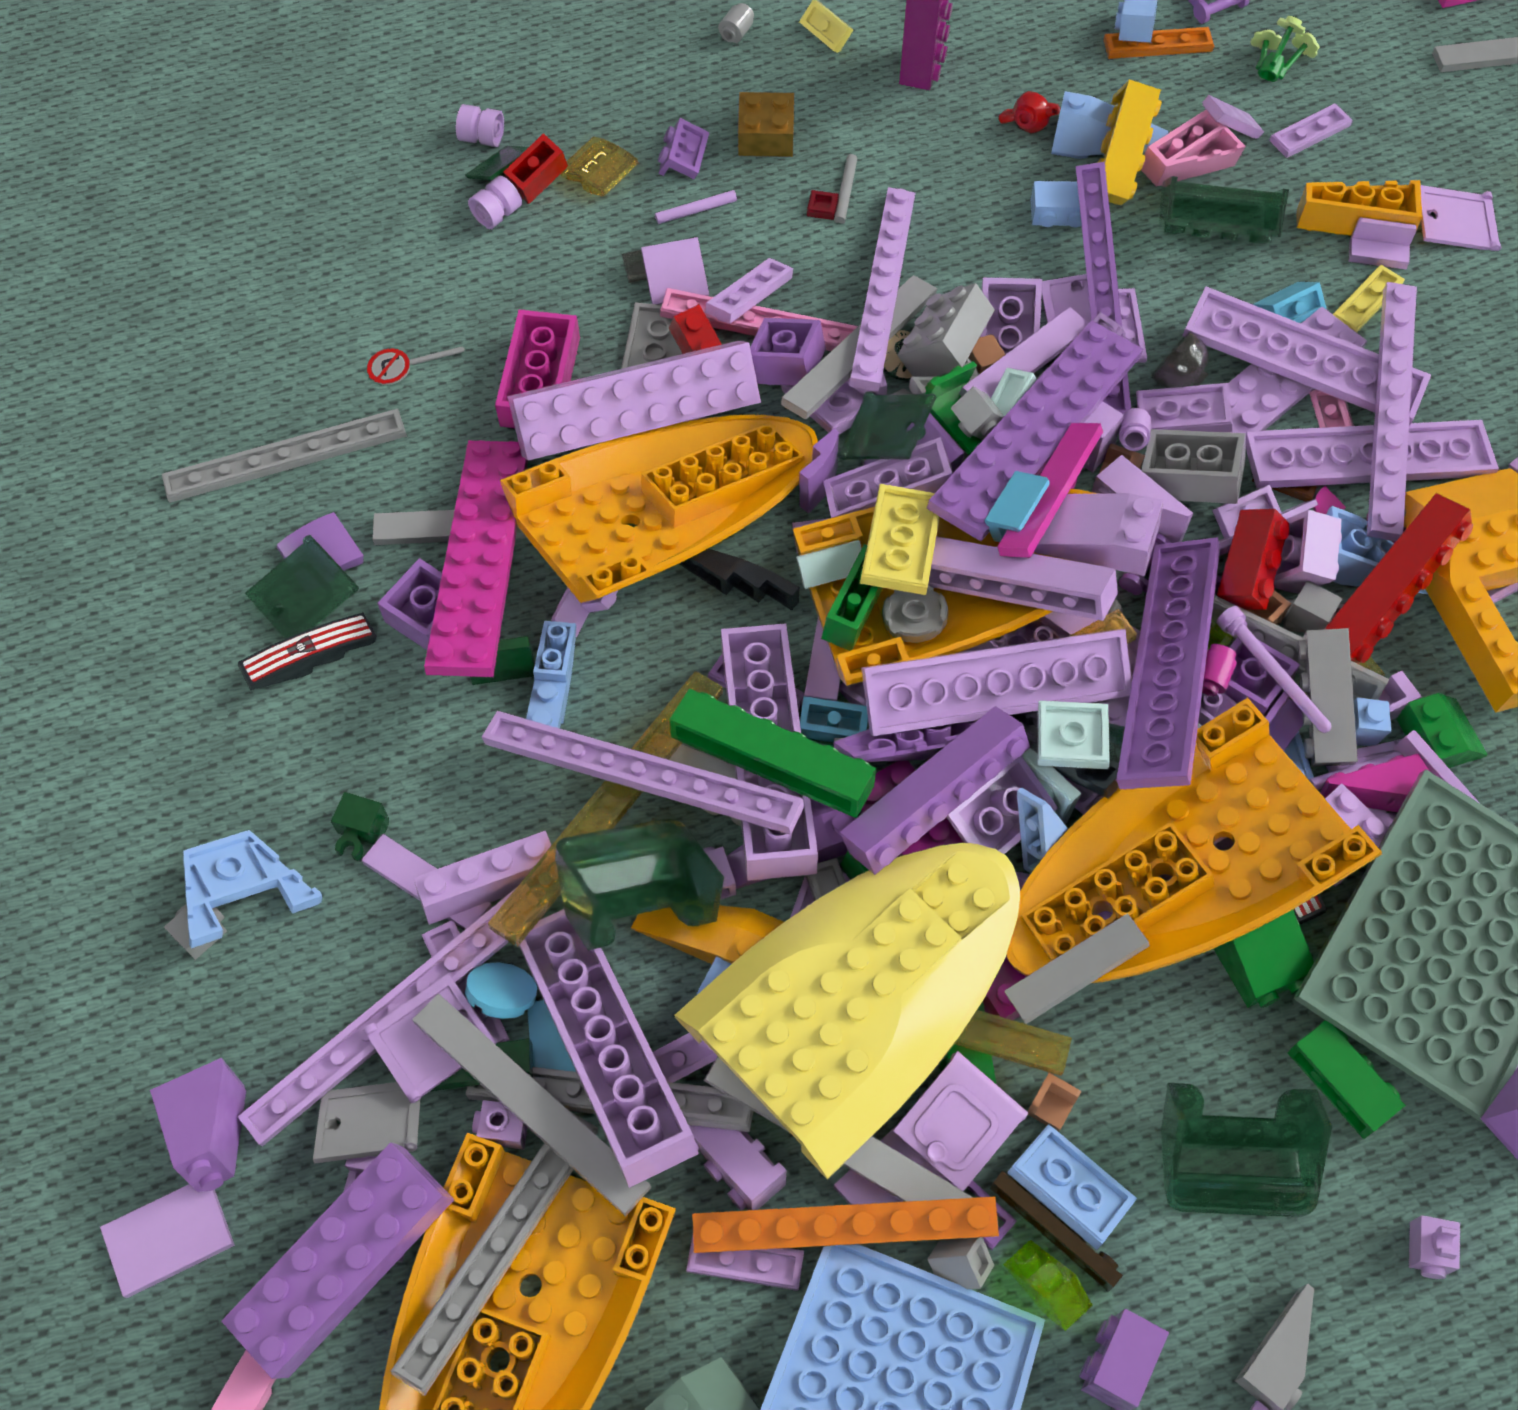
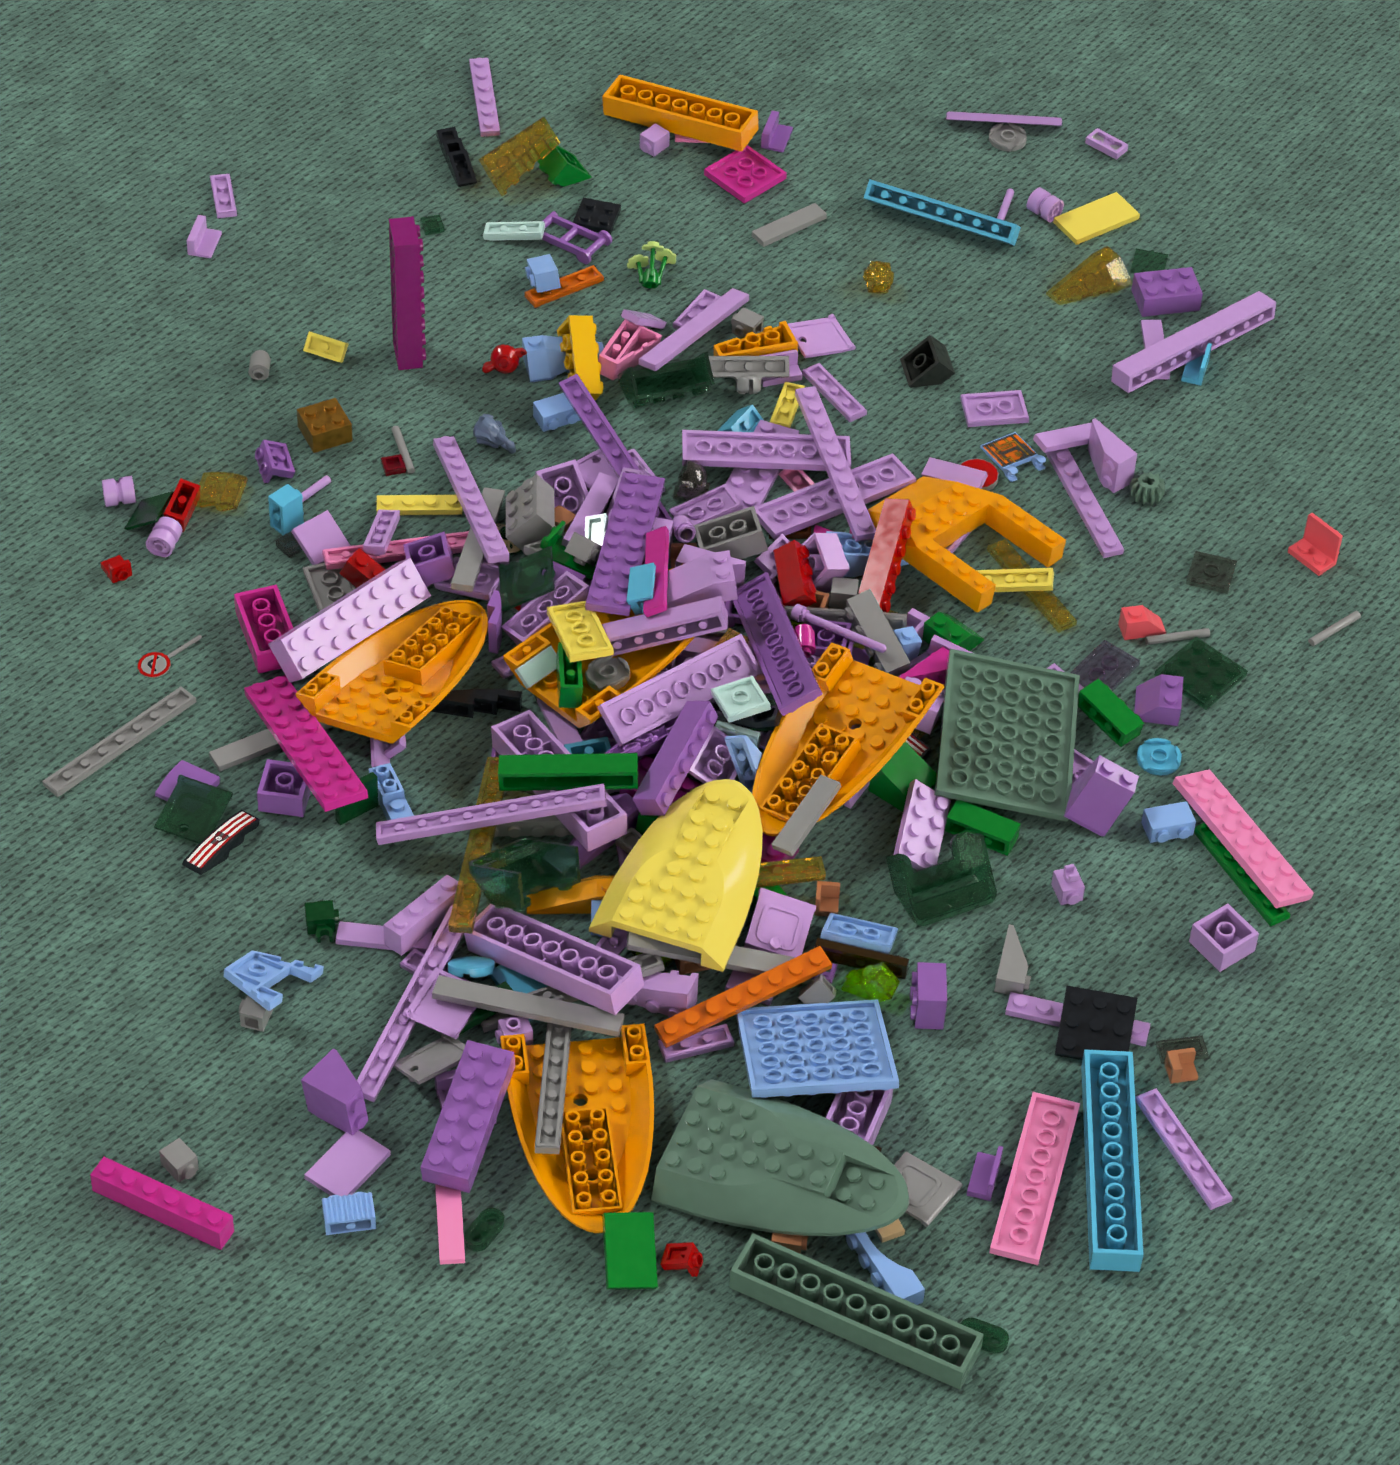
camera: 30 degrees left, 15 degrees down
(113, 1327) = (348, 1213): none -> light blue brick
(421, 224) = (117, 568): none -> red bracket
(652, 216) = (286, 509): none -> medium azure brick
(822, 268) = (420, 504): none -> light yellow plate
(961, 204) = (492, 433): none -> sand blue piece
(1250, 1044) = (922, 825): none -> lavender plate
(1292, 153) = (693, 329): none -> lavender tile
(1338, 232) = (749, 370): none -> light grey plate
(1368, 165) = (746, 322): none -> light grey brick
(1442, 302) = (834, 392): none -> lavender tile

